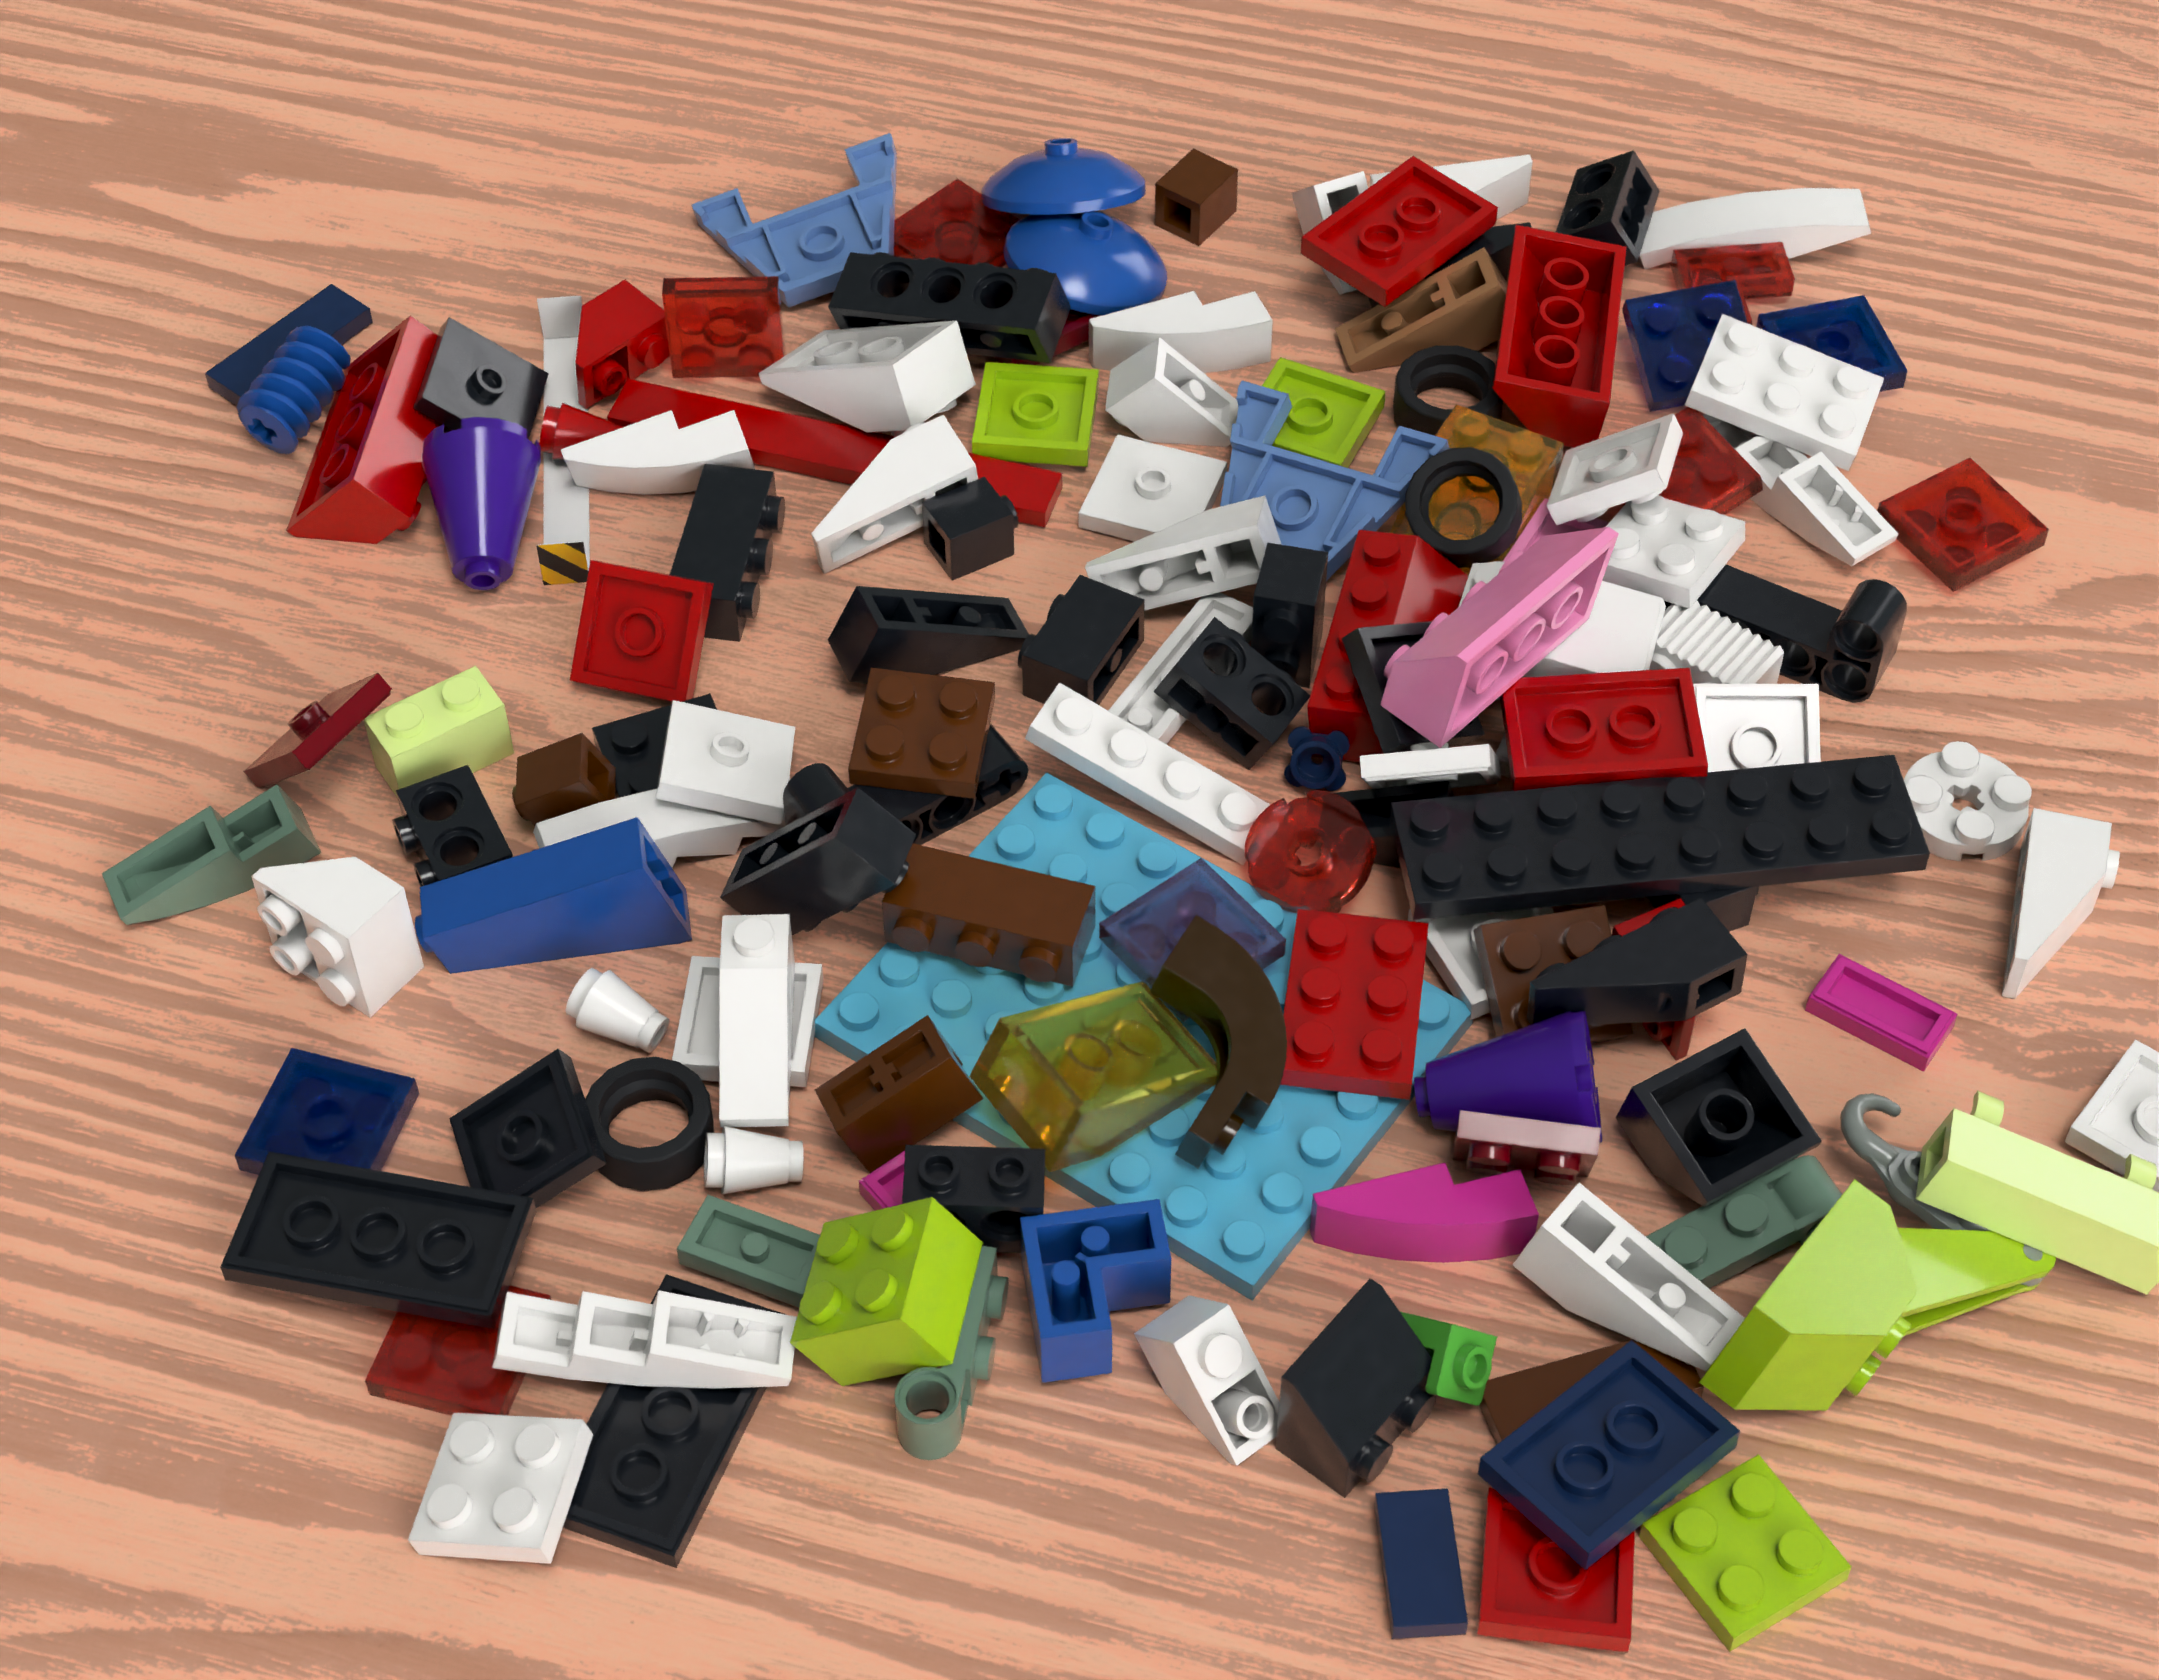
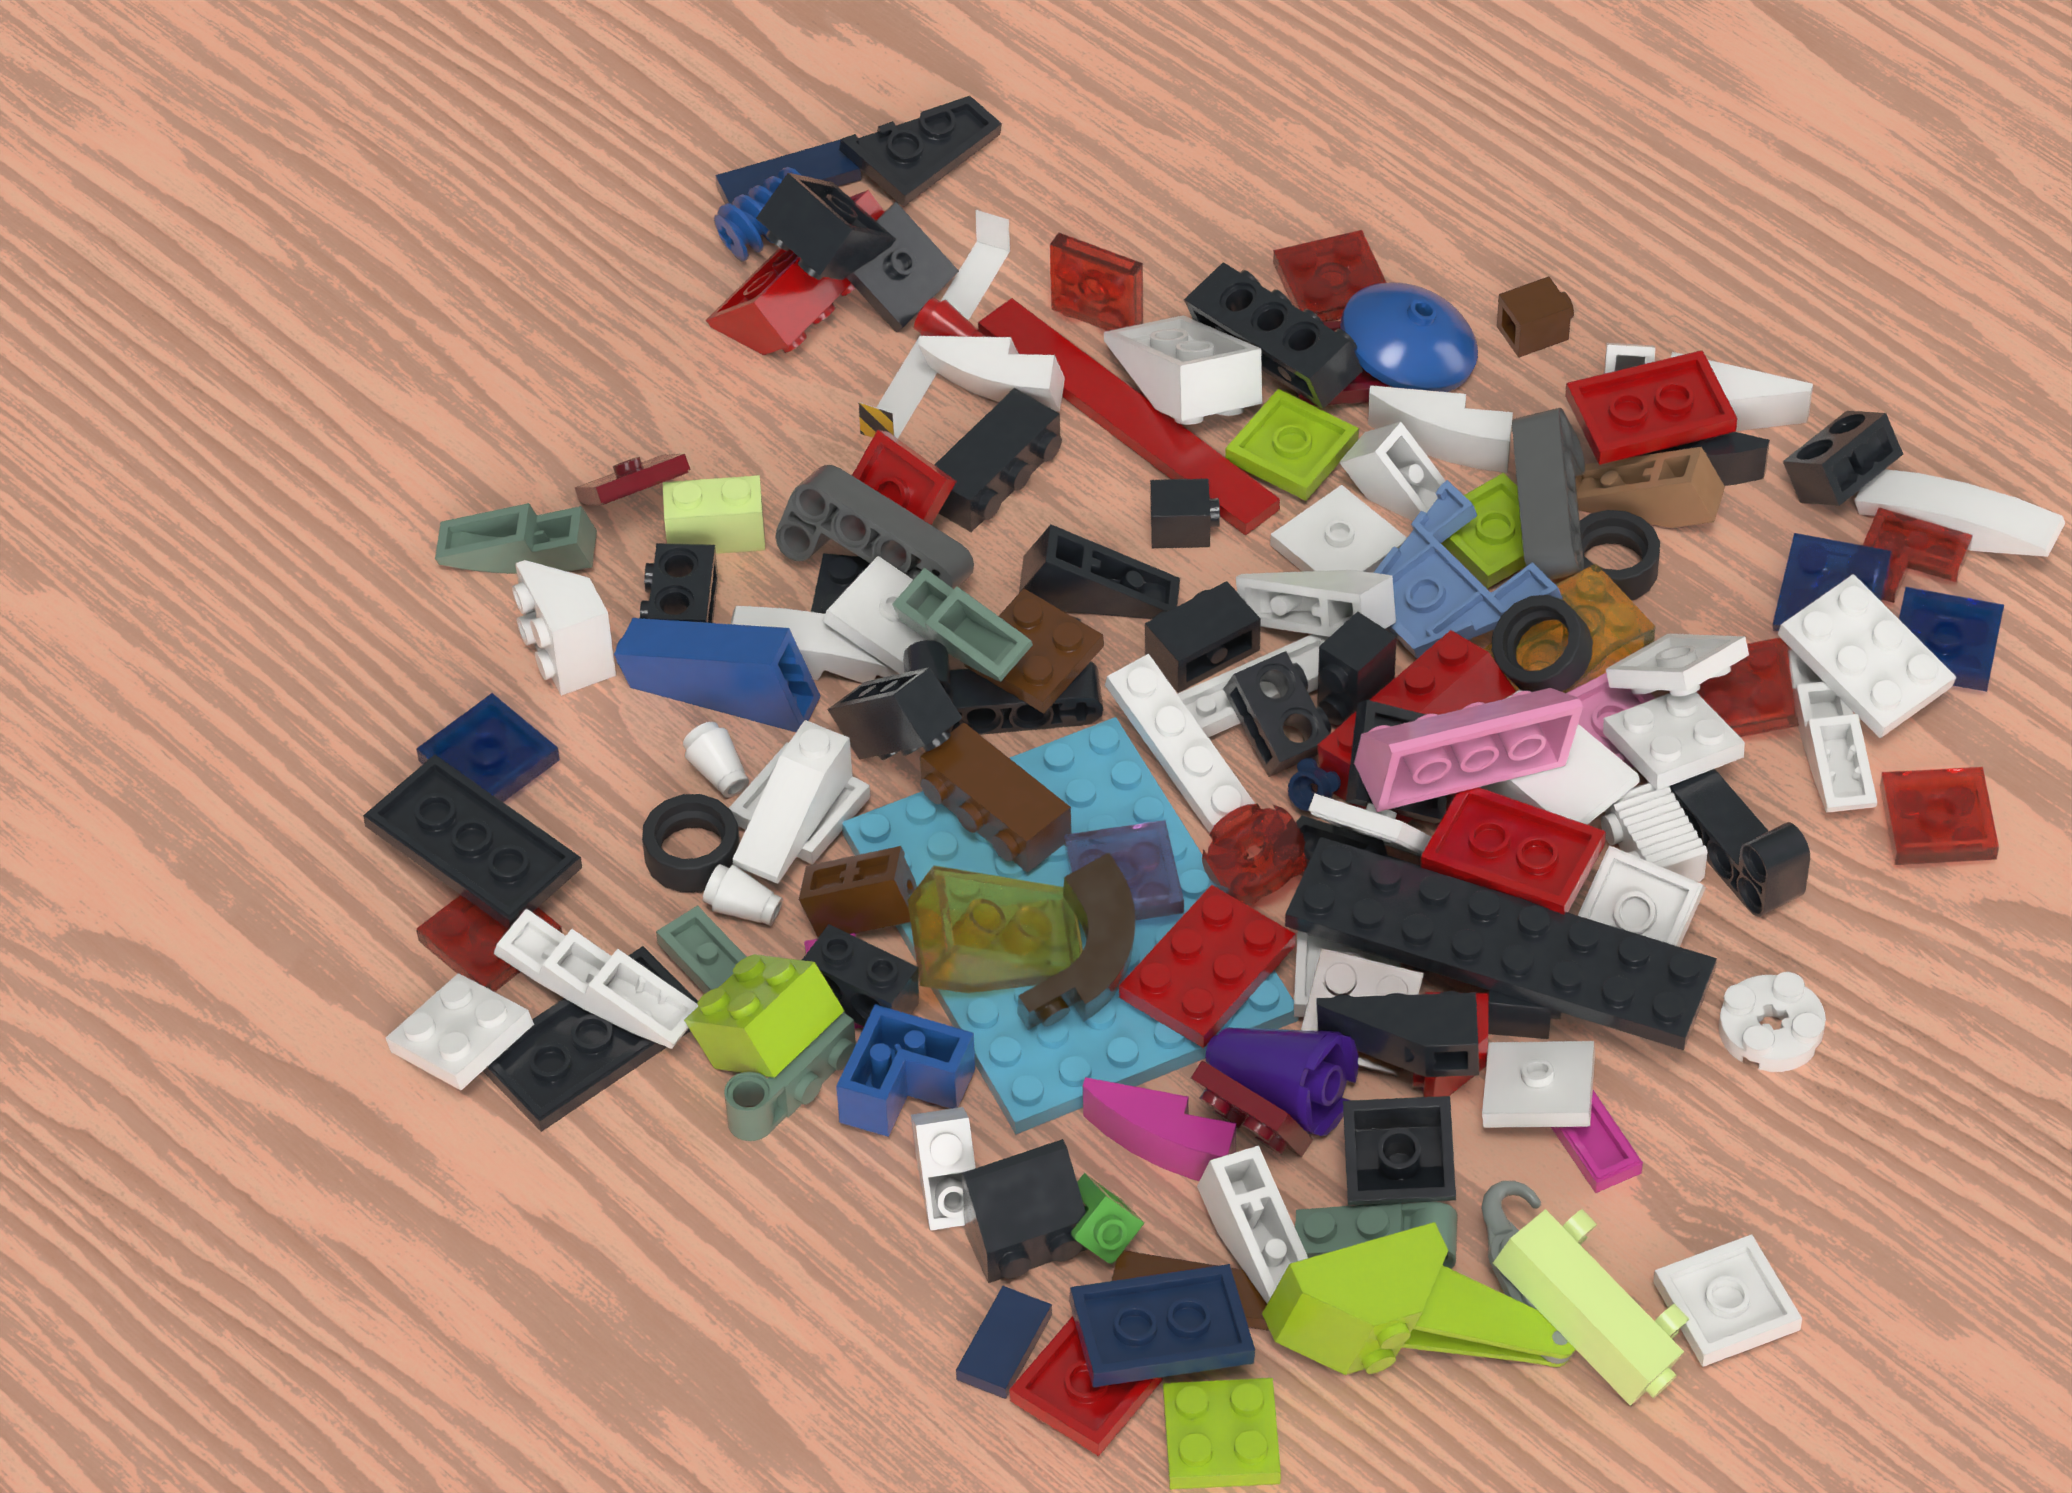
camera: 30 degrees right, 0 degrees up
(389, 368) = (822, 227): none -> black slope
(428, 264) = (922, 151): none -> black wing
(481, 495) = (845, 350): dark purple cone -> none
(530, 1133) = (608, 815): black plate -> none
(562, 779) = (775, 582): reddish brown brick -> none
(618, 340) = (1013, 266): red slope -> none
(653, 688) = (868, 524): none -> dark grey beam
(814, 240) = (1245, 239): medium blue wing -> none
(840, 730) = (961, 625): none -> sand green slope
(891, 492) = (1126, 466): white slope -> none
(1063, 181) = (1428, 267): blue dish -> none
(1368, 366) = (1546, 468): none -> dark grey beam
(1559, 333) = (1723, 538): red slope -> none
(1802, 977) = (1538, 1084): none -> white plate
(2056, 888) = (1777, 1112): white slope -> none

